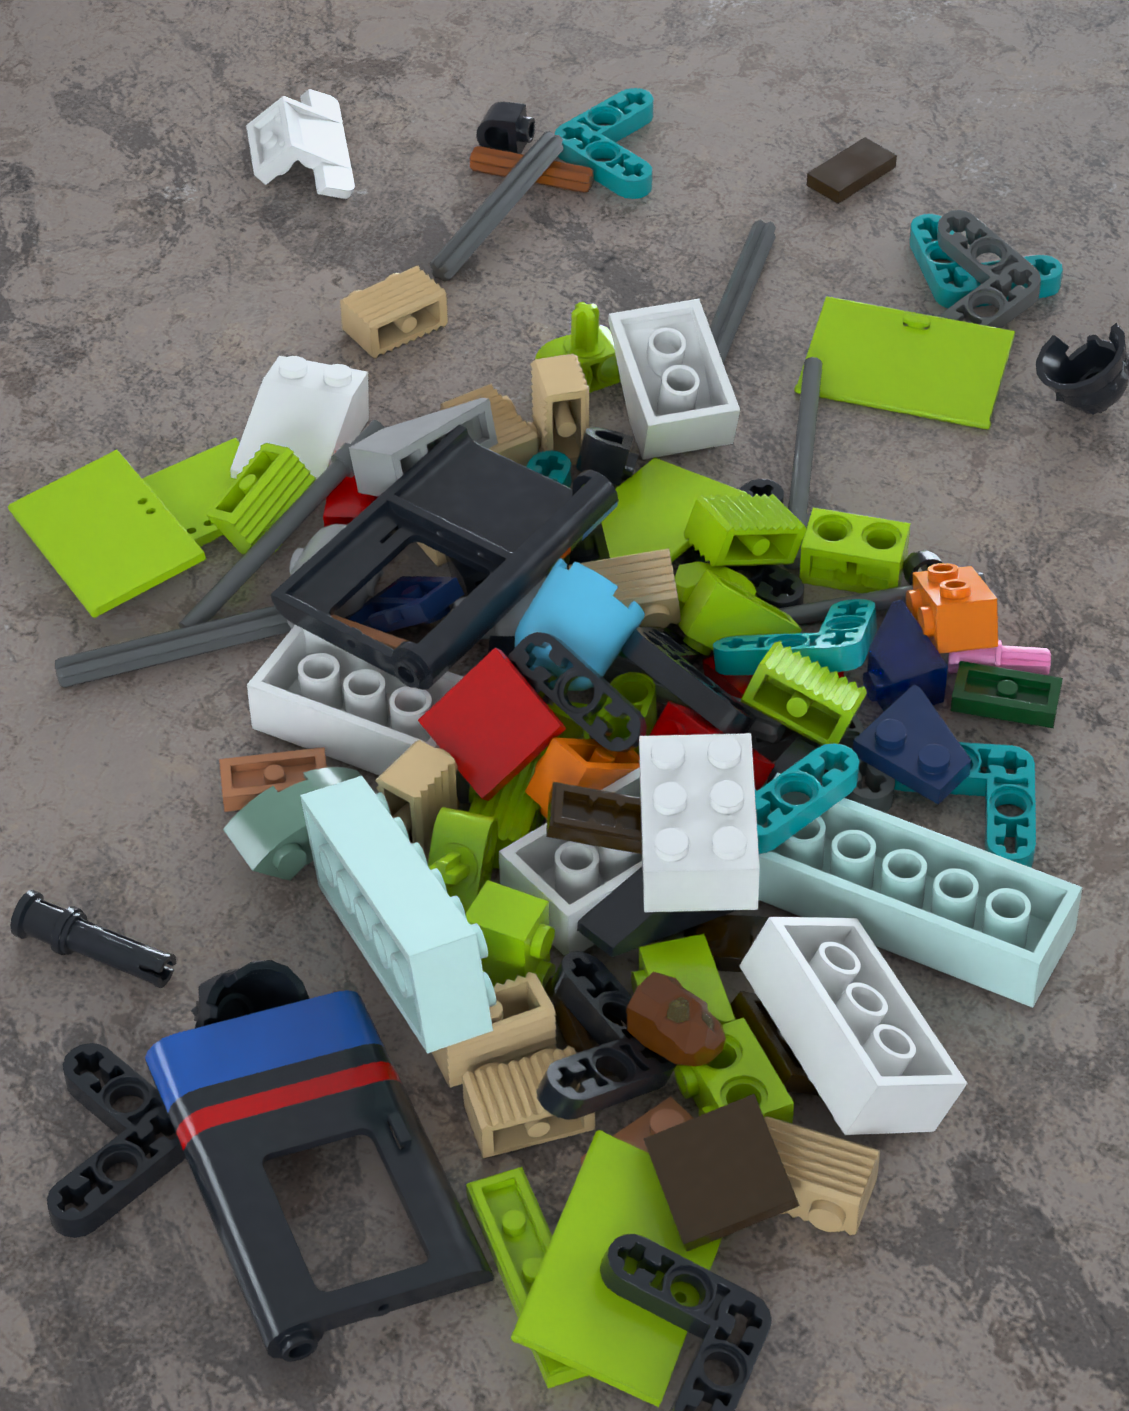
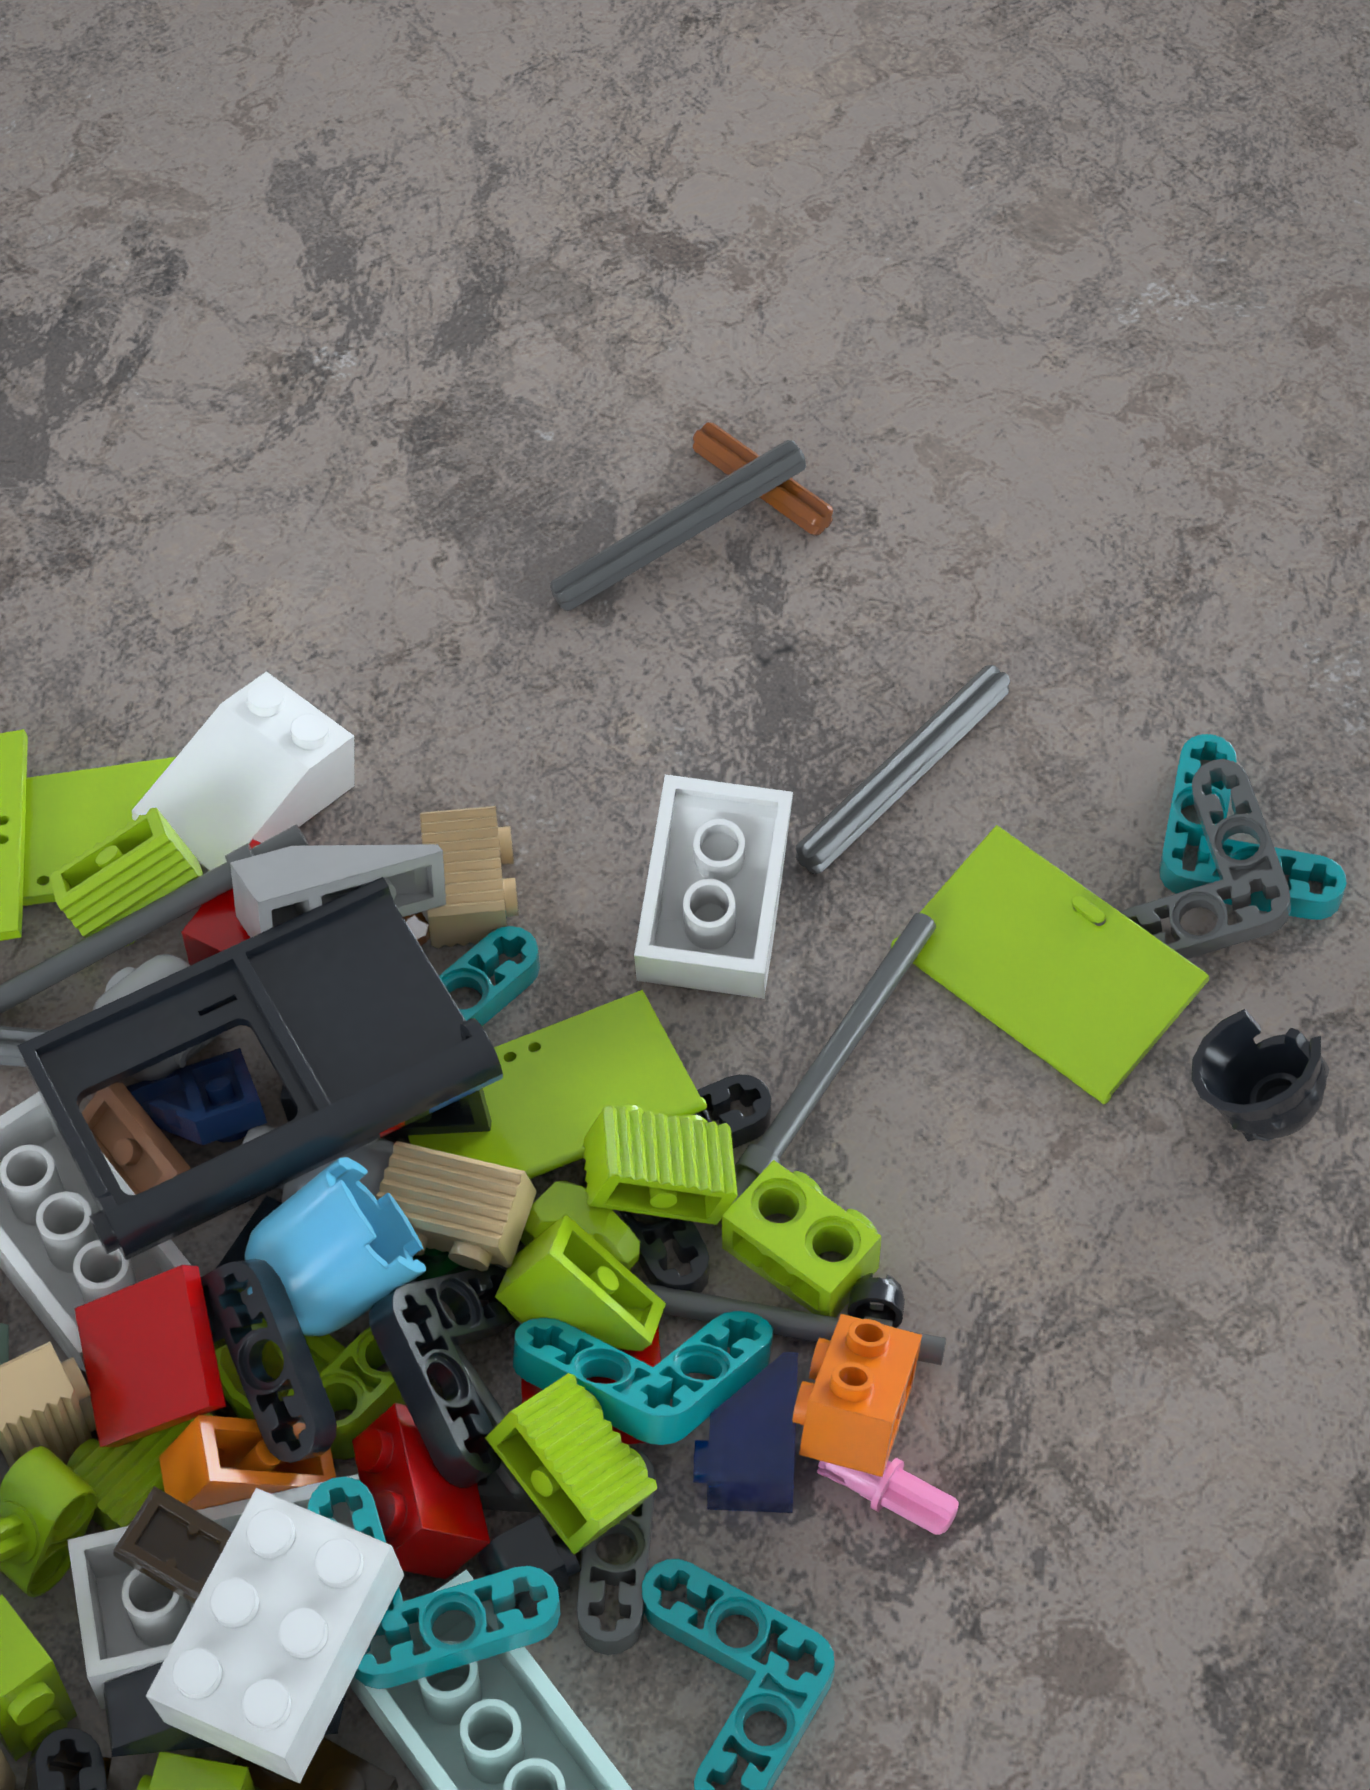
camera: 25 degrees right, 10 degrees up
(304, 133) = (513, 340): white plate -> none
(394, 311) = (462, 641): tan brick -> none
(506, 127) = (760, 409): black plate -> none
(560, 404) = (553, 880): tan brick -> none
(587, 141) = (871, 458): teal beam -> none
(592, 346) = (627, 798): lime beam -> none
(607, 454) = (581, 967): black plate -> none
(851, 170) = (1166, 624): dark brown tile -> none
(915, 747) = (687, 1586): dark blue wing -> none
(1006, 694) = (864, 1546): dark green plate -> none

